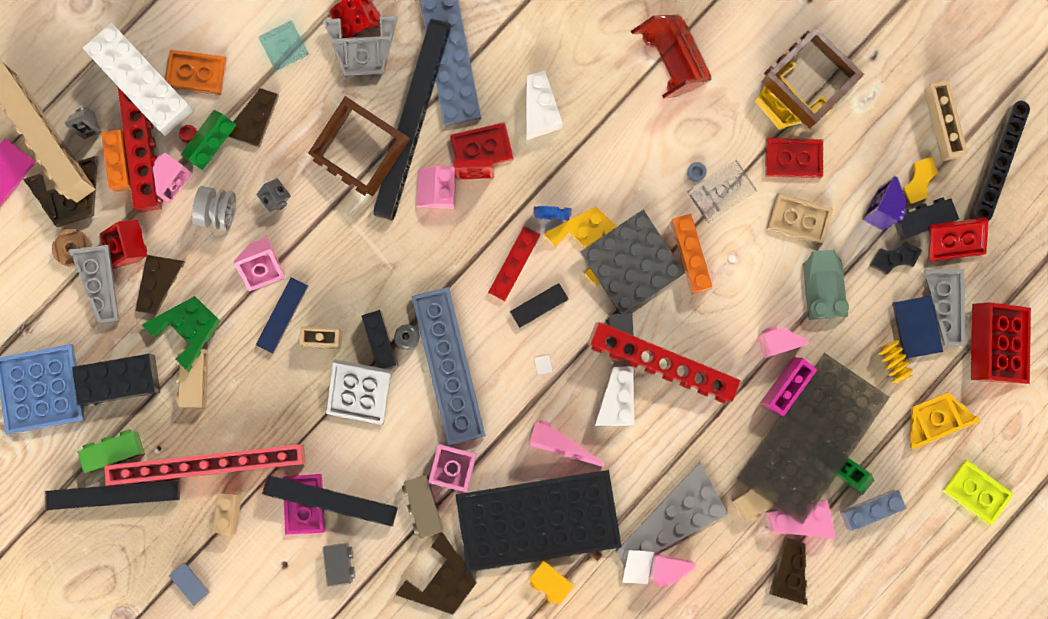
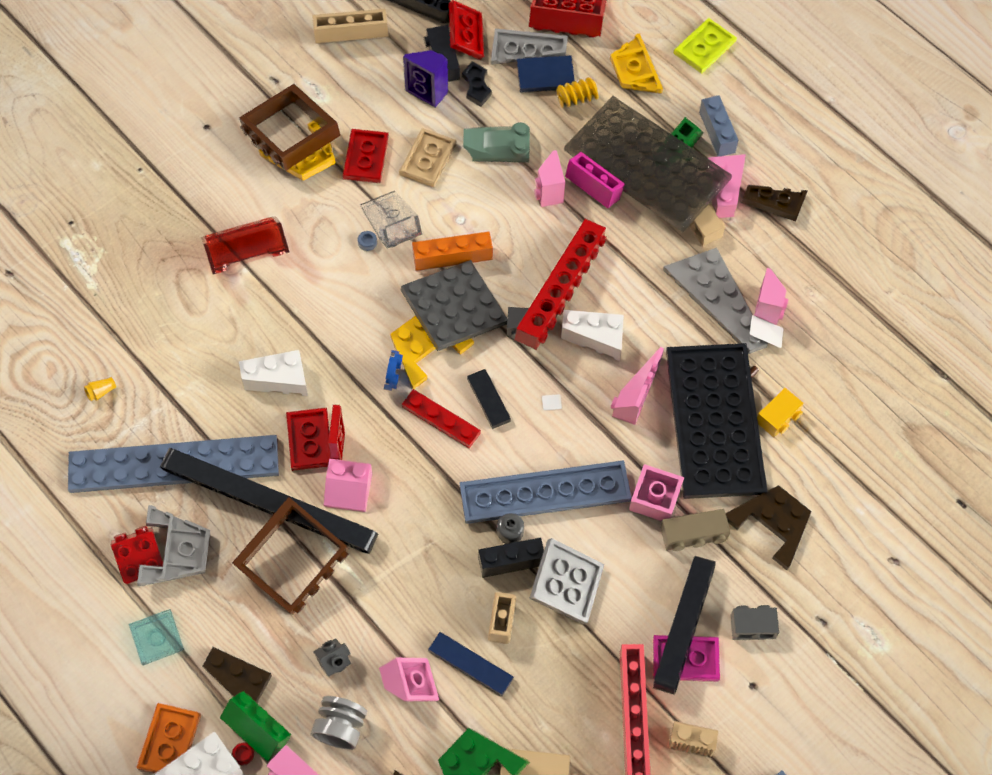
camera: 85 degrees left, 20 degrees down
(922, 174) = (395, 51): yellow tile -> none

